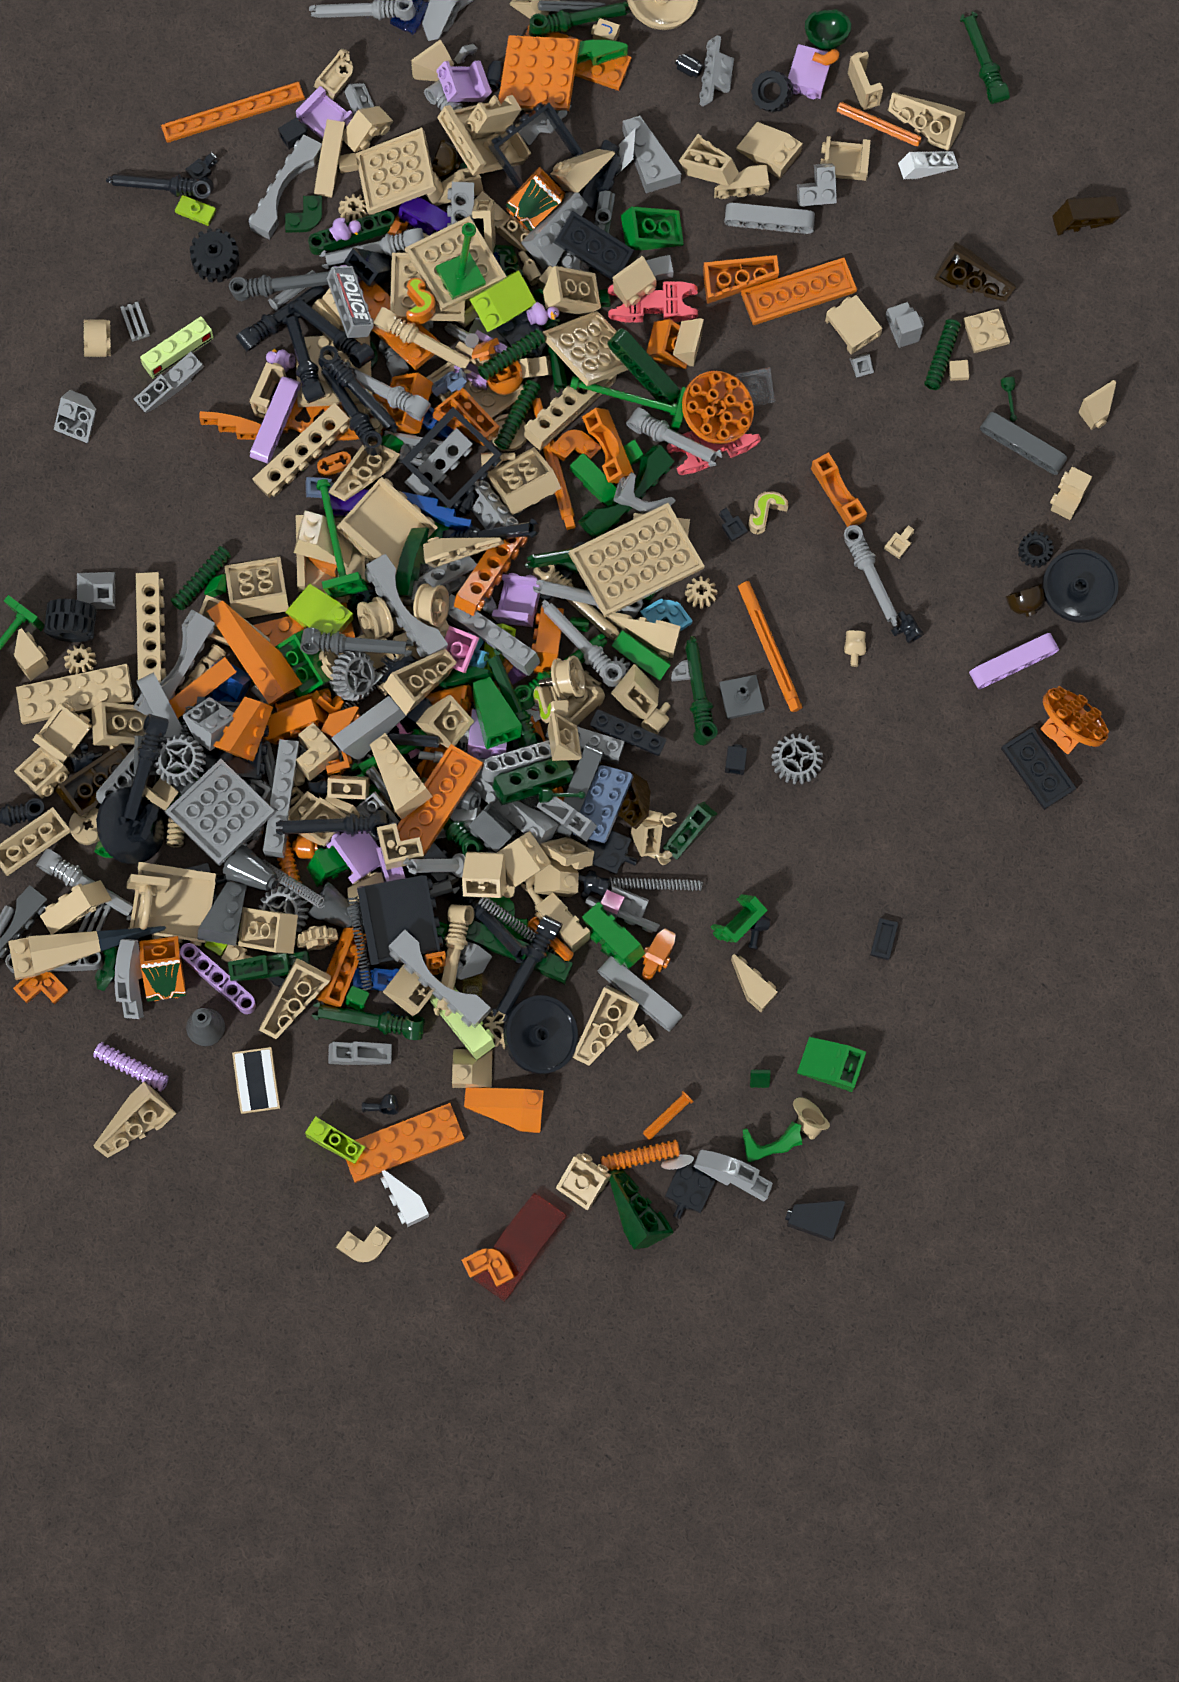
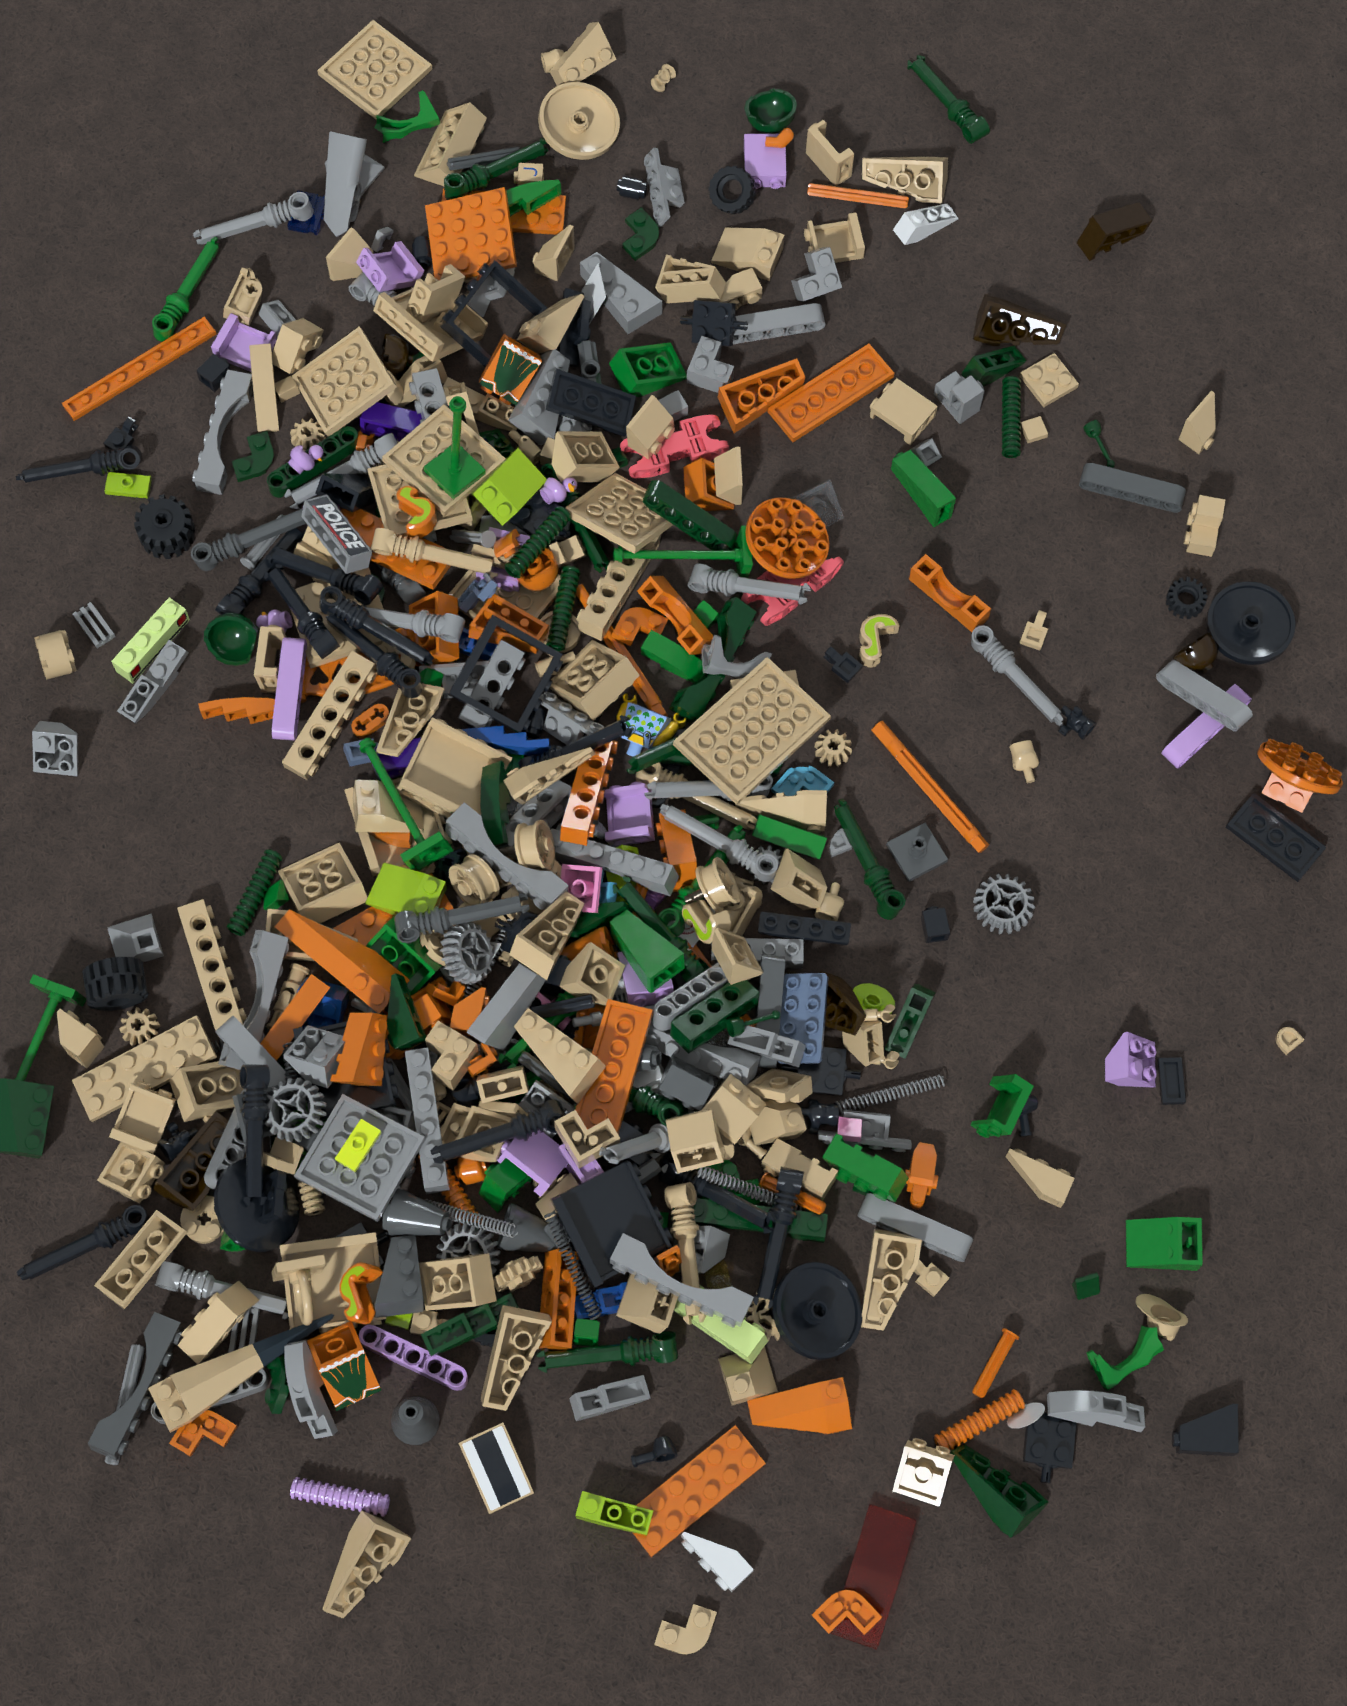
camera: 15 degrees left, 5 degrees down
(186, 914) = (355, 1292): none -> orange animal
(221, 802) = (358, 1145): none -> neon yellow plate
(241, 364) = (231, 638): none -> dark green cylinder
(280, 63) = (177, 303): none -> green piece
(286, 712) = (403, 1020): none -> dark green slope
(554, 531) = (648, 726): none -> torso
(605, 107) = (555, 254): none -> tan slope
(665, 803) = (873, 996): none -> lime dish
(687, 112) = (645, 237): none -> dark green plate
(700, 243) = (705, 368): none -> light grey brick
(718, 204) = (714, 321): none -> black plate
(847, 394) = (924, 487): none -> green slope
(856, 914) = (1131, 1062): none -> lavender slope
(940, 306) = (993, 365): none -> dark green slope
(990, 933) = (1288, 1039): none -> tan tile
(1018, 635) = (1204, 695): none -> light grey beam

